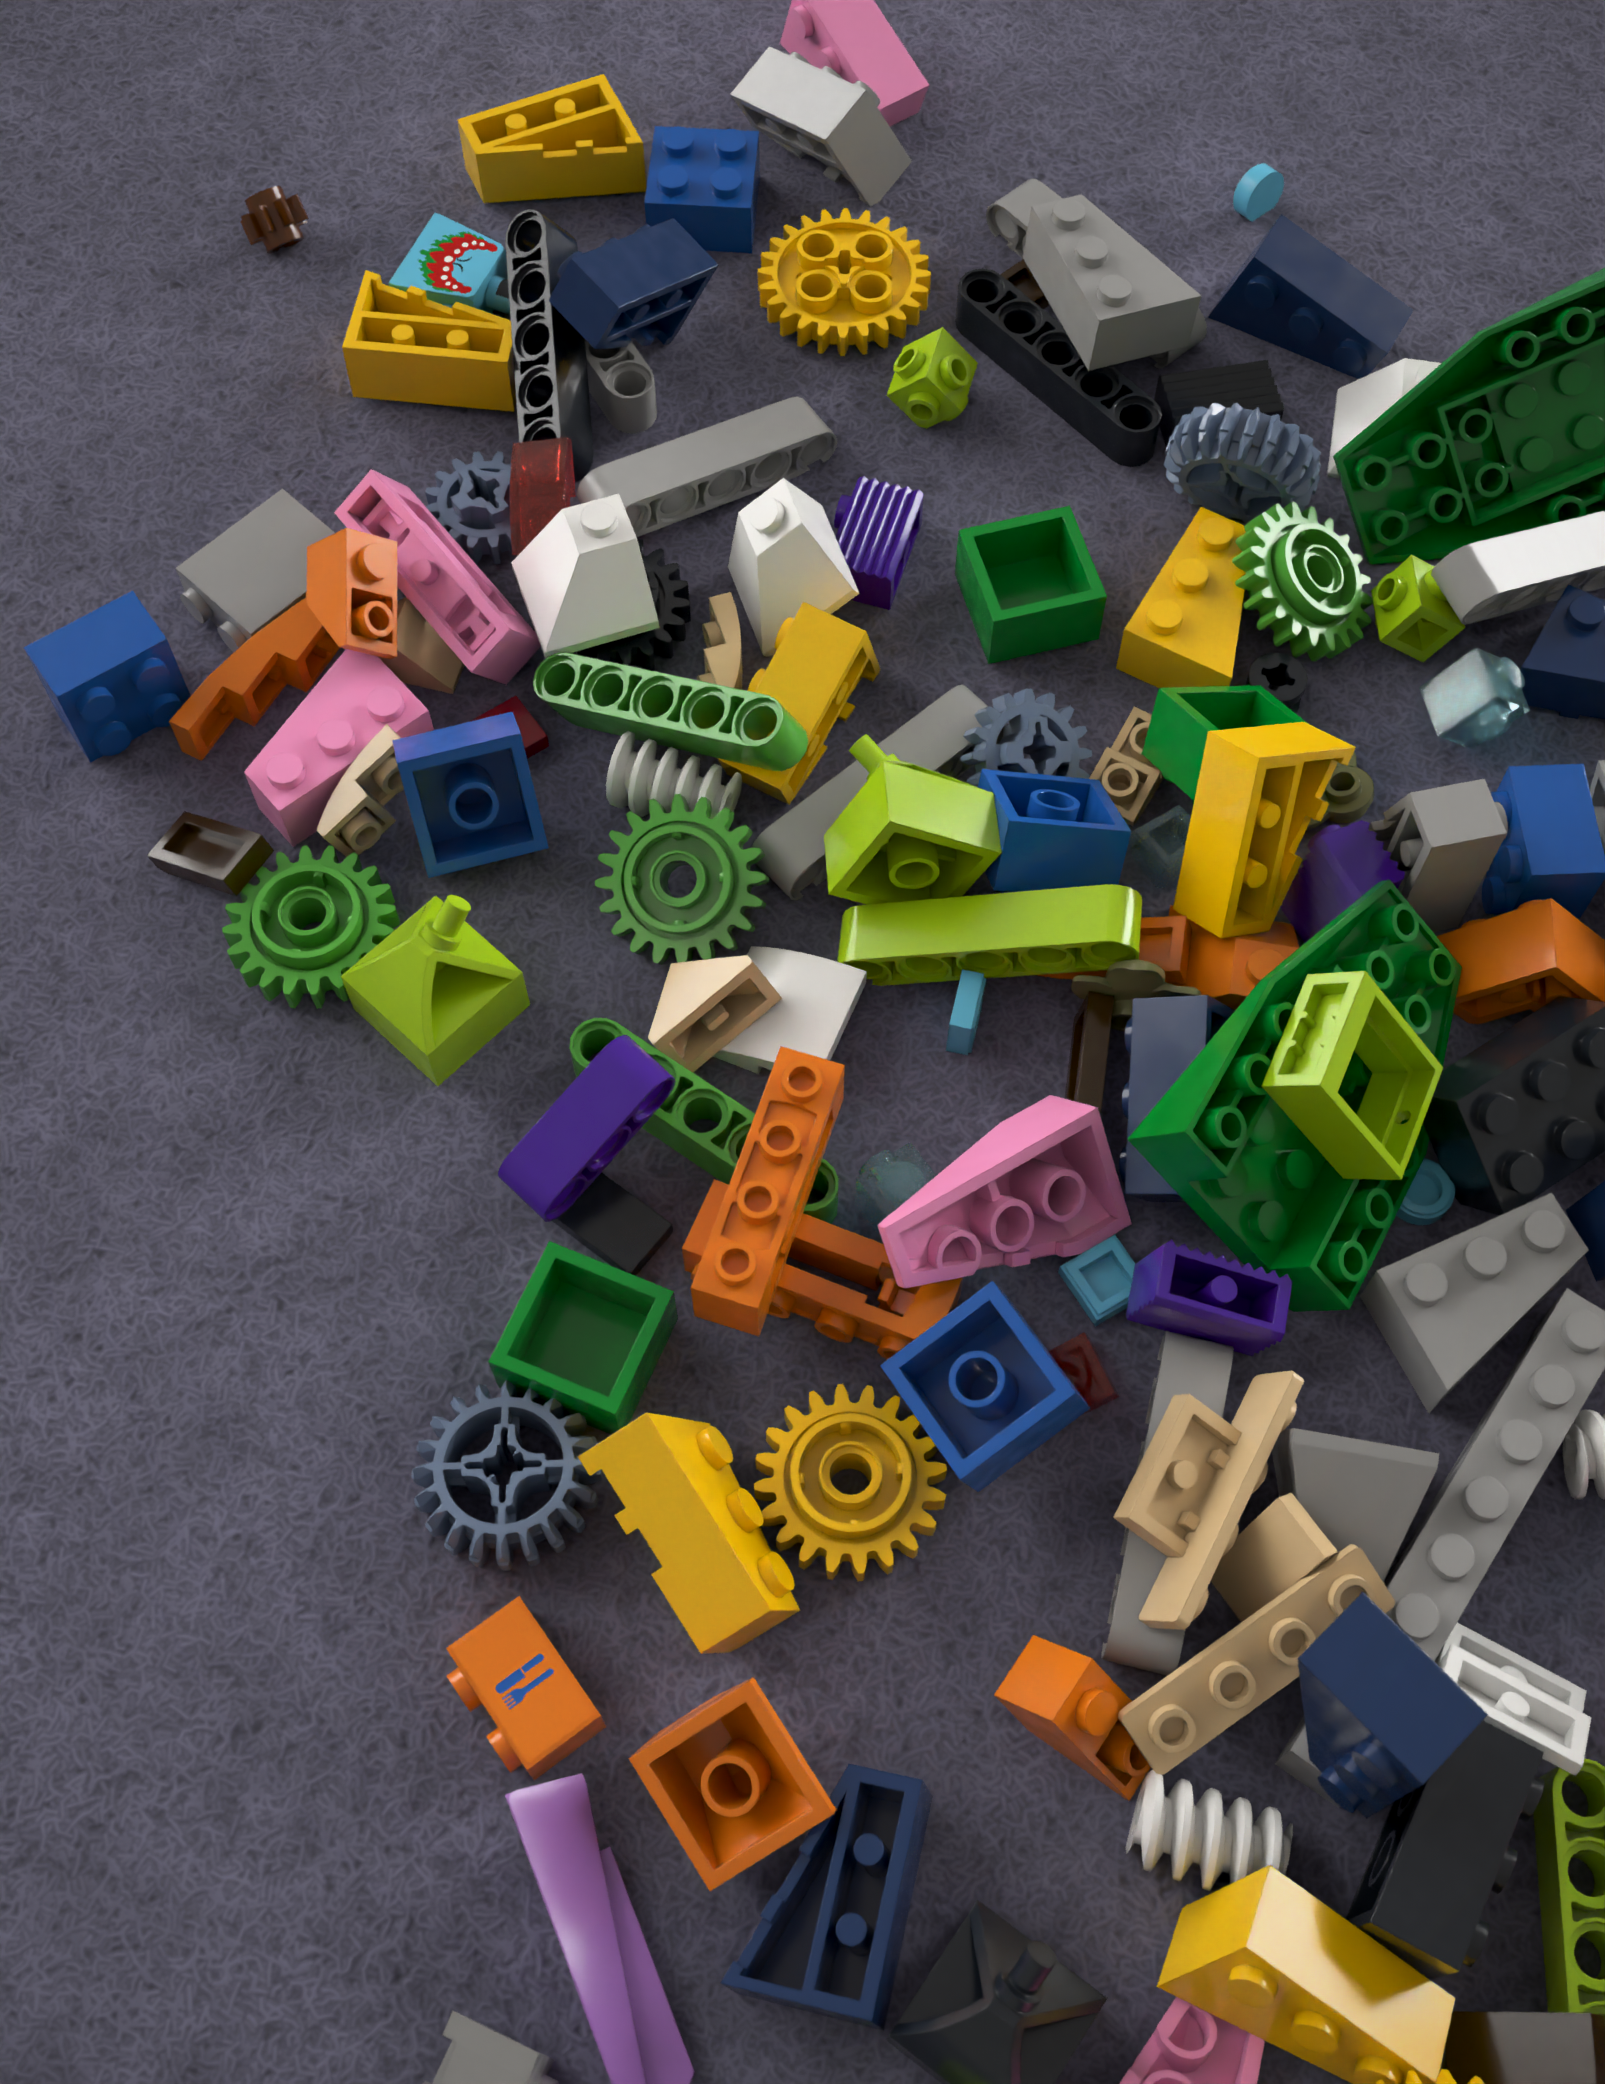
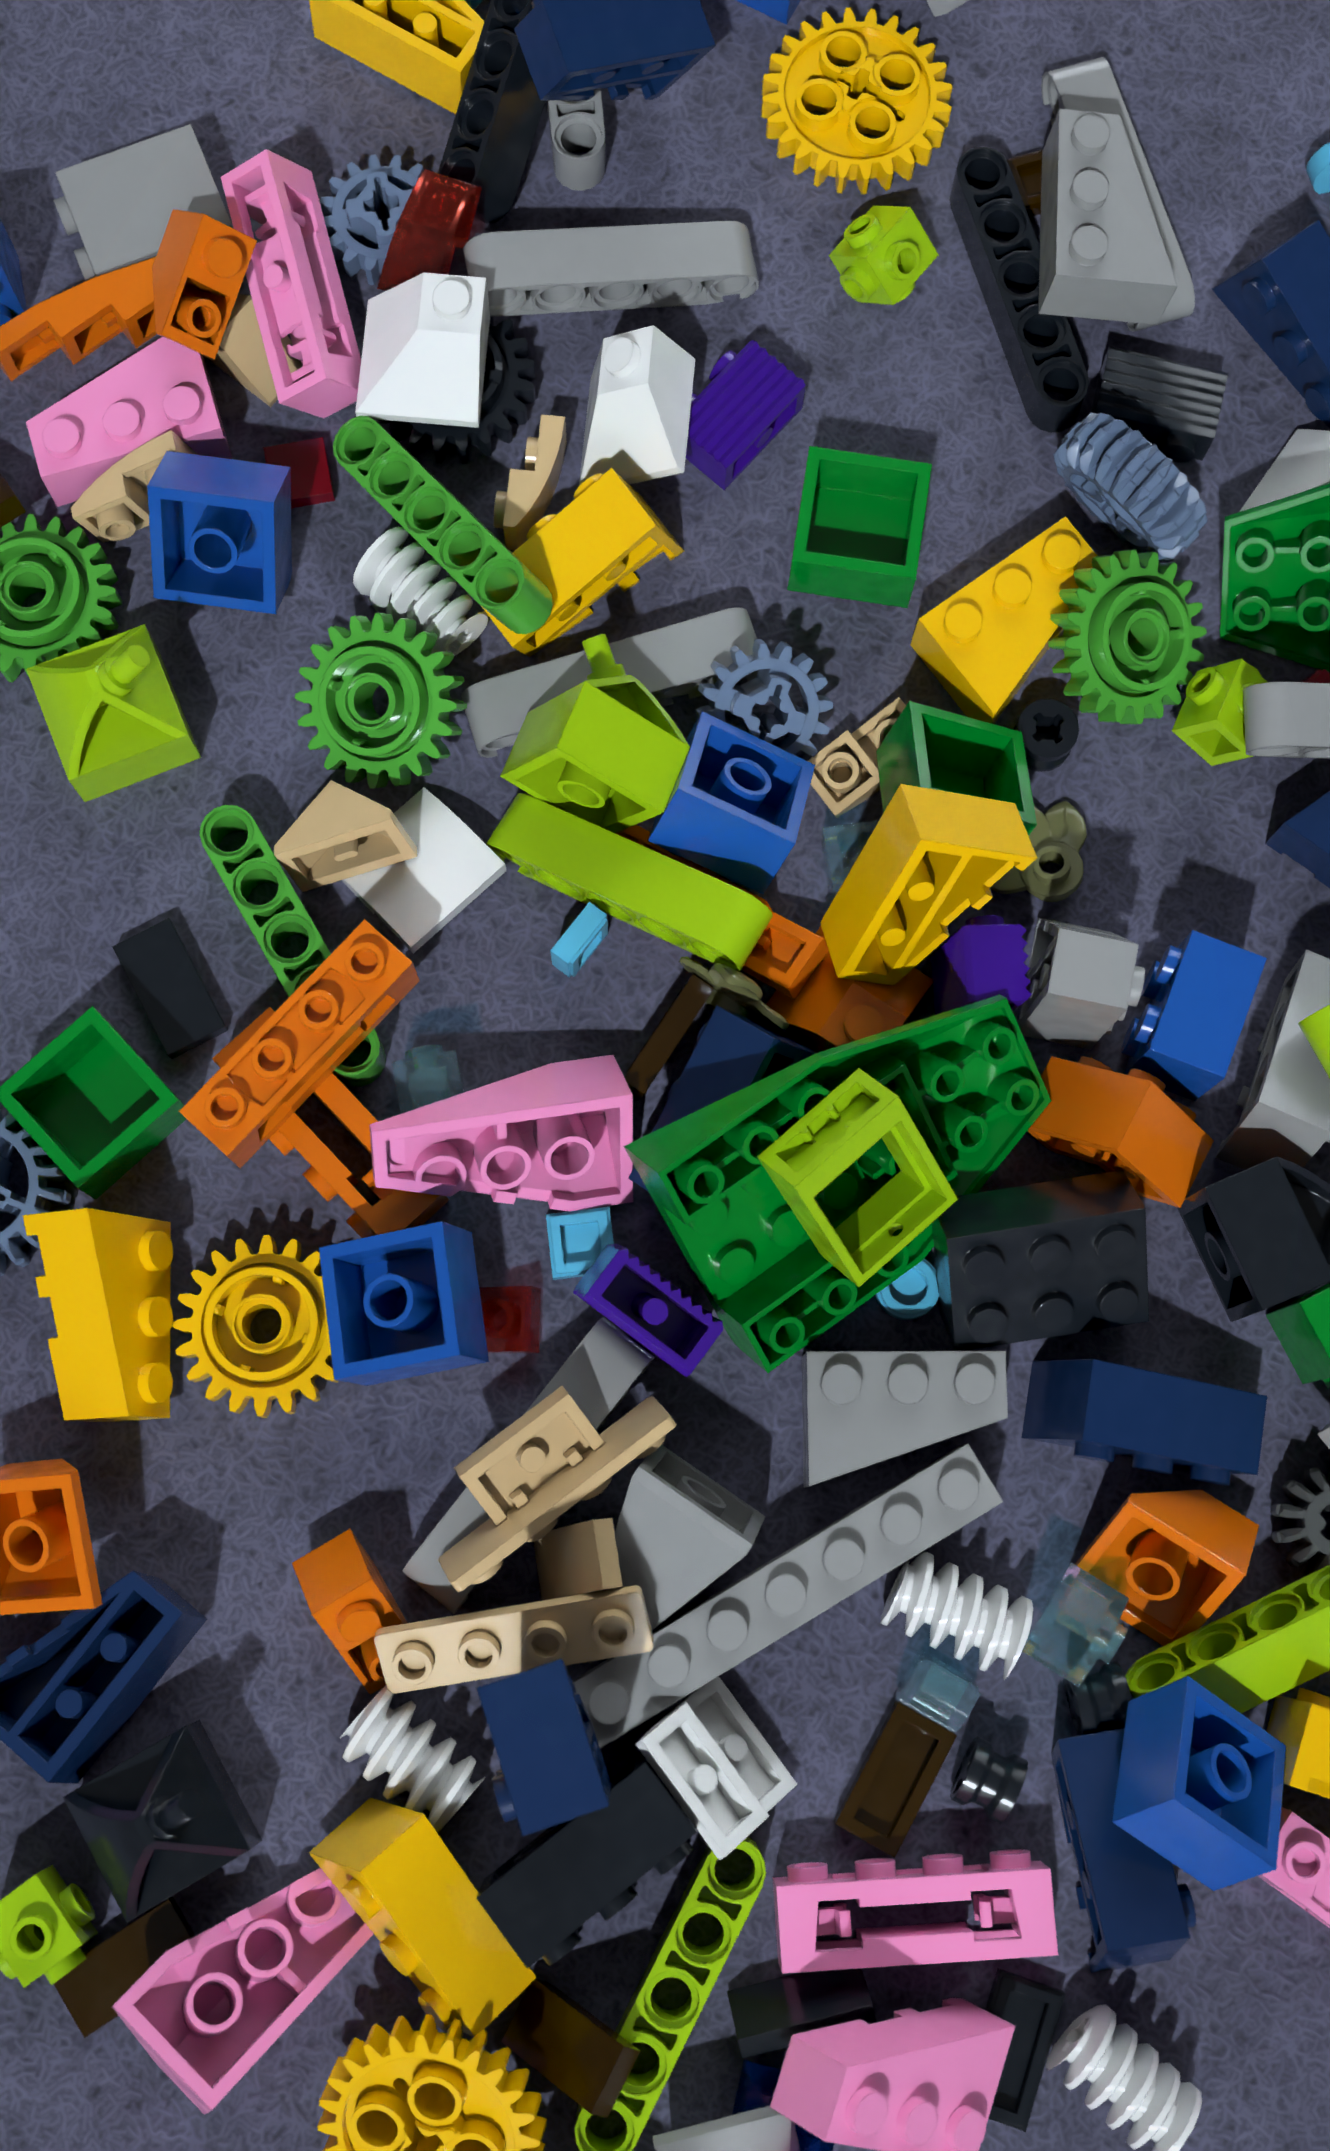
camera: 20 degrees right, 15 degrees up
(586, 1128) = (177, 910): dark purple beam -> none
(1475, 698) = (1227, 832): clear light blue brick -> none

